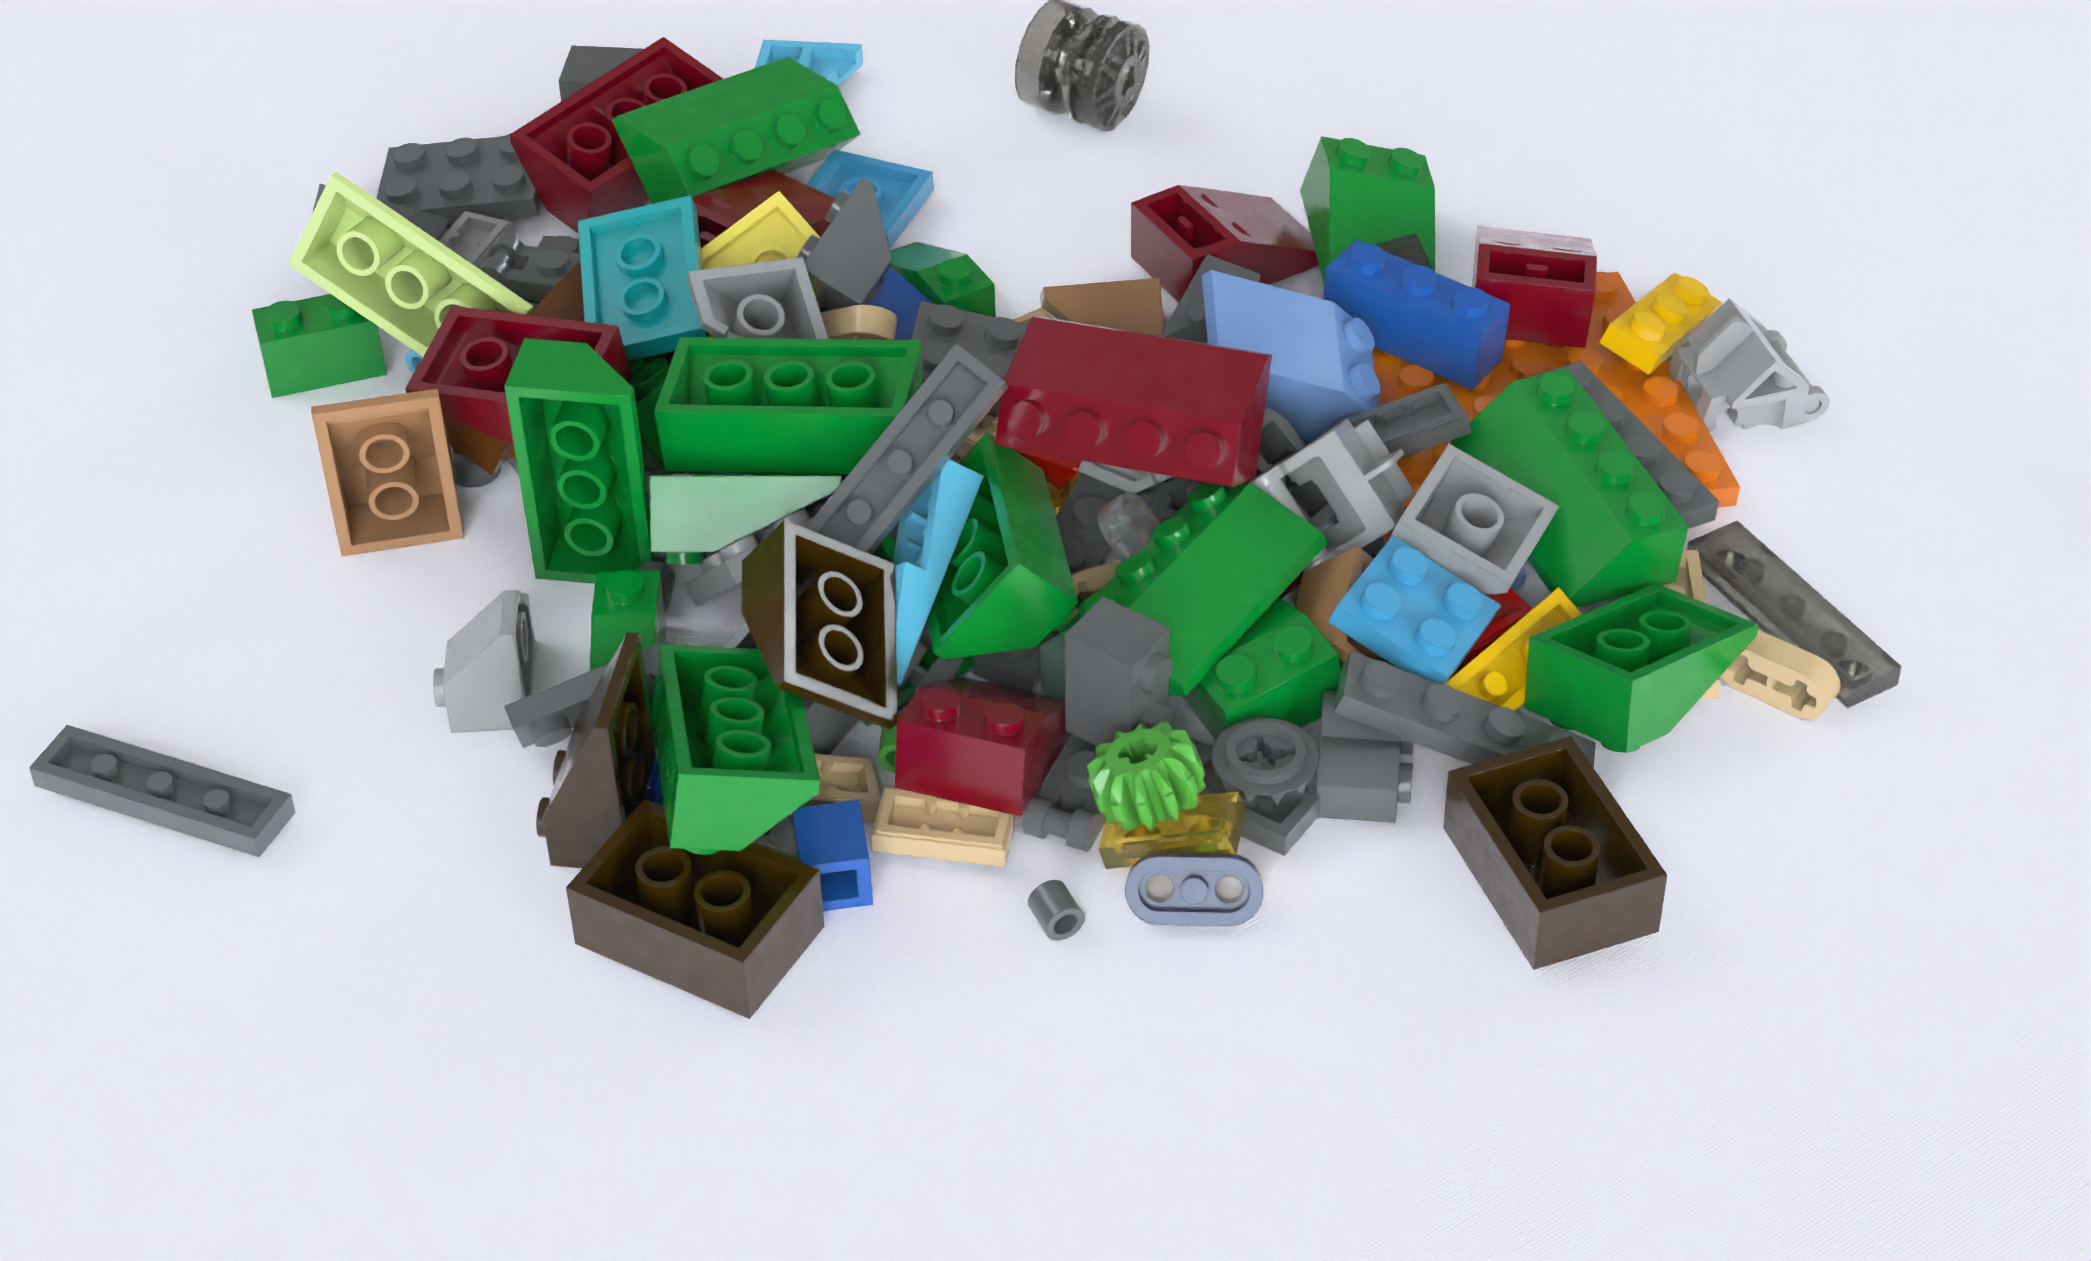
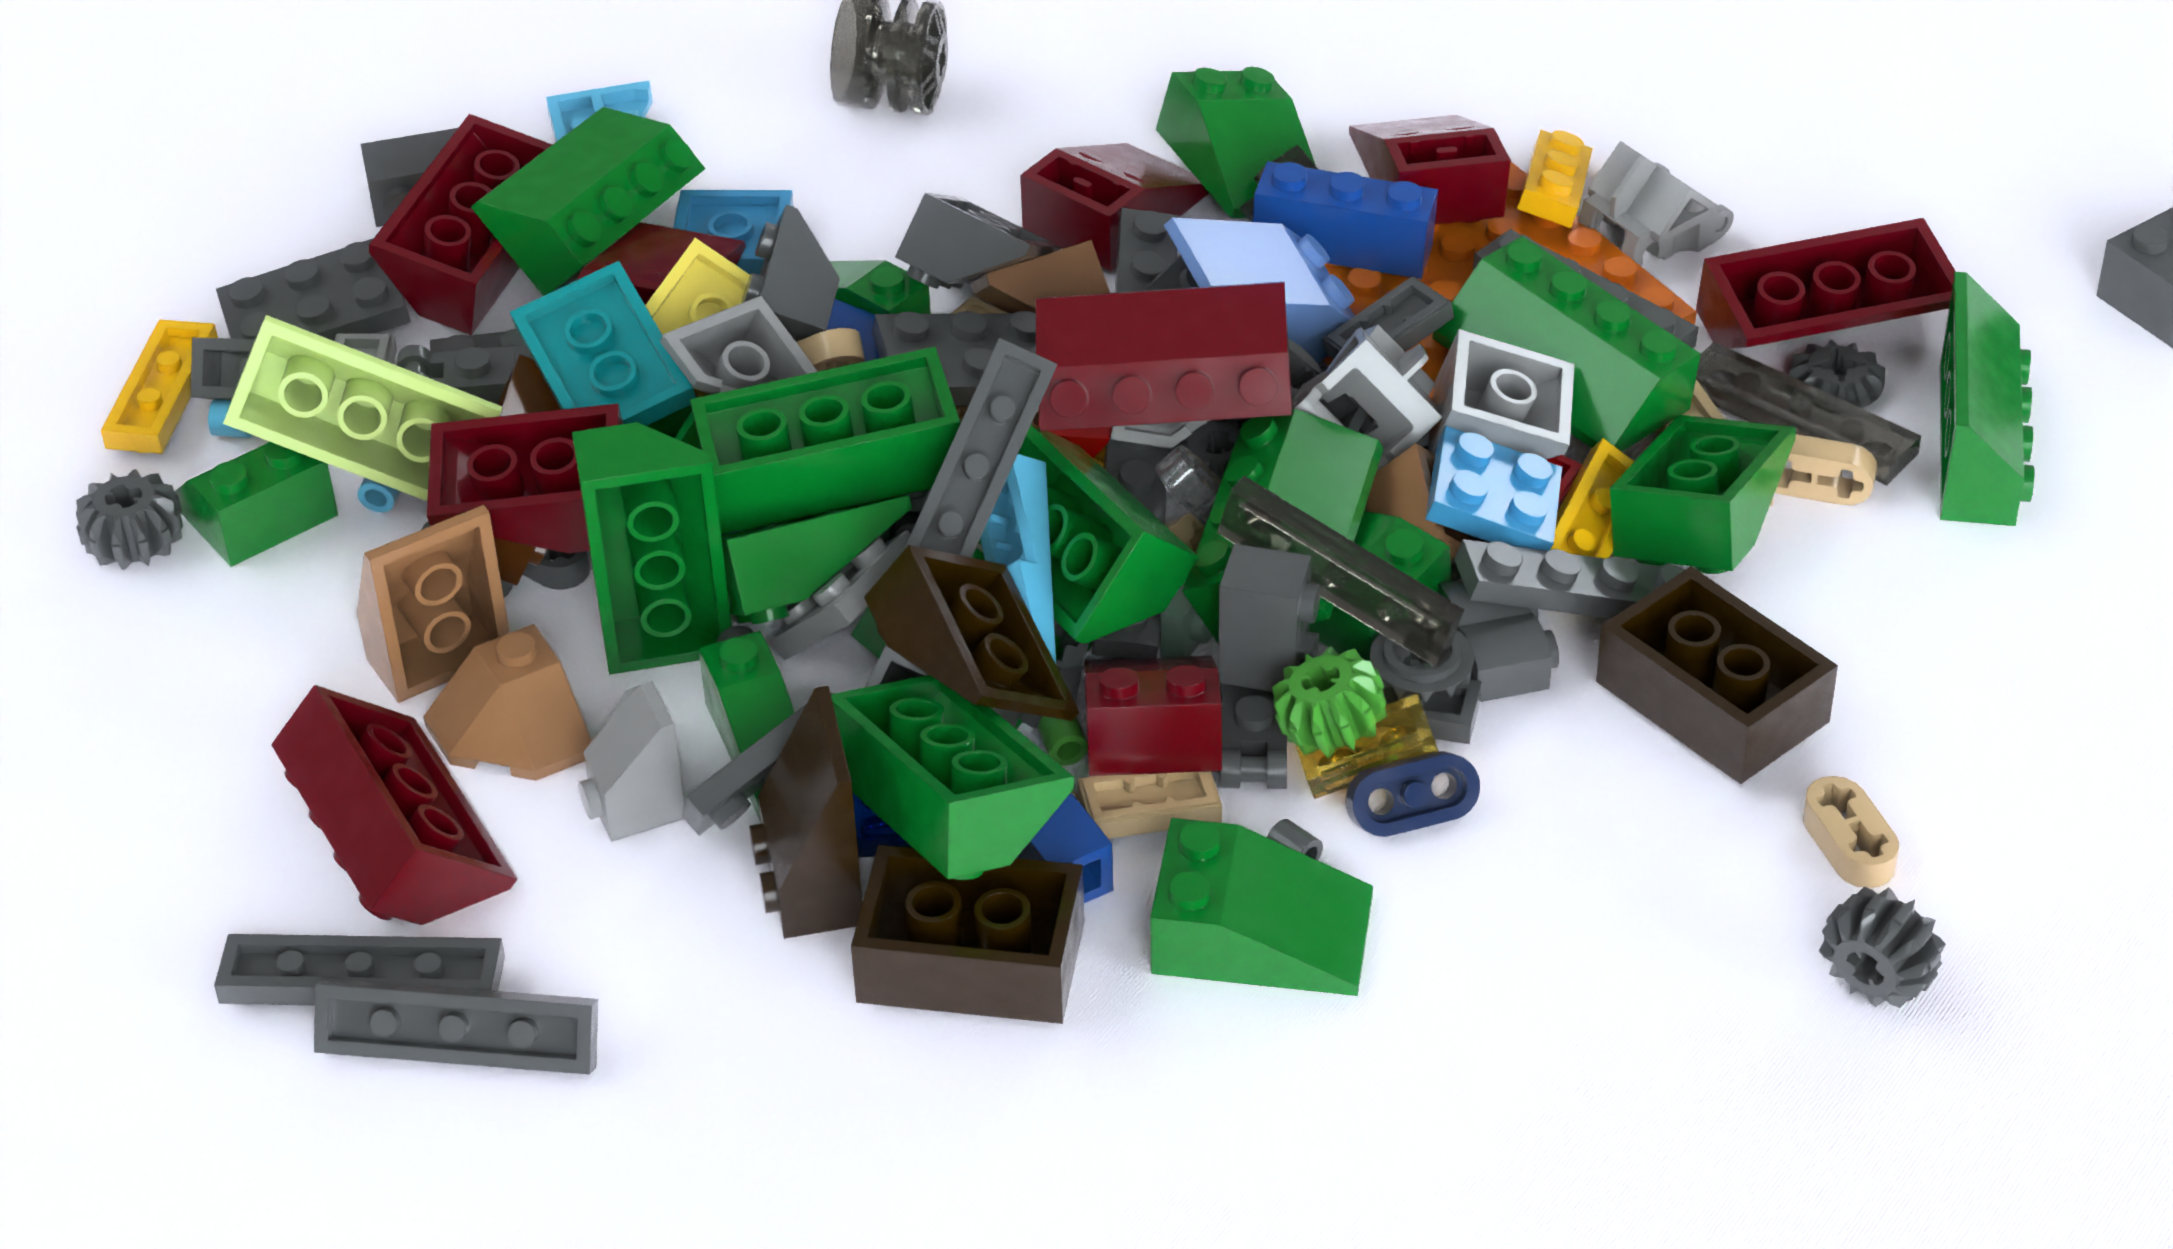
camera: 20 degrees left, 0 degrees up
(200, 333) = (129, 519): none -> dark grey gear
(210, 863) = (456, 1025): none -> dark grey plate
(268, 650) = (389, 809): none -> dark red slope
(270, 240) = (155, 389): none -> yellow plate
(418, 584) = (510, 709): none -> medium nougat slope
(981, 962) = (1255, 912): none -> green slope
(1037, 247) = (959, 242): none -> dark grey slope
(1205, 652) = (1347, 572): none -> clear smoke plate
(1571, 1175) = (1882, 947): none -> dark grey gear
(1632, 1047) = (1862, 826): none -> tan beam
(1876, 596) = (1862, 374): none -> dark grey gear
(1878, 489) = (1824, 284): none -> dark red slope
(1977, 653) = (1983, 410): none -> green slope

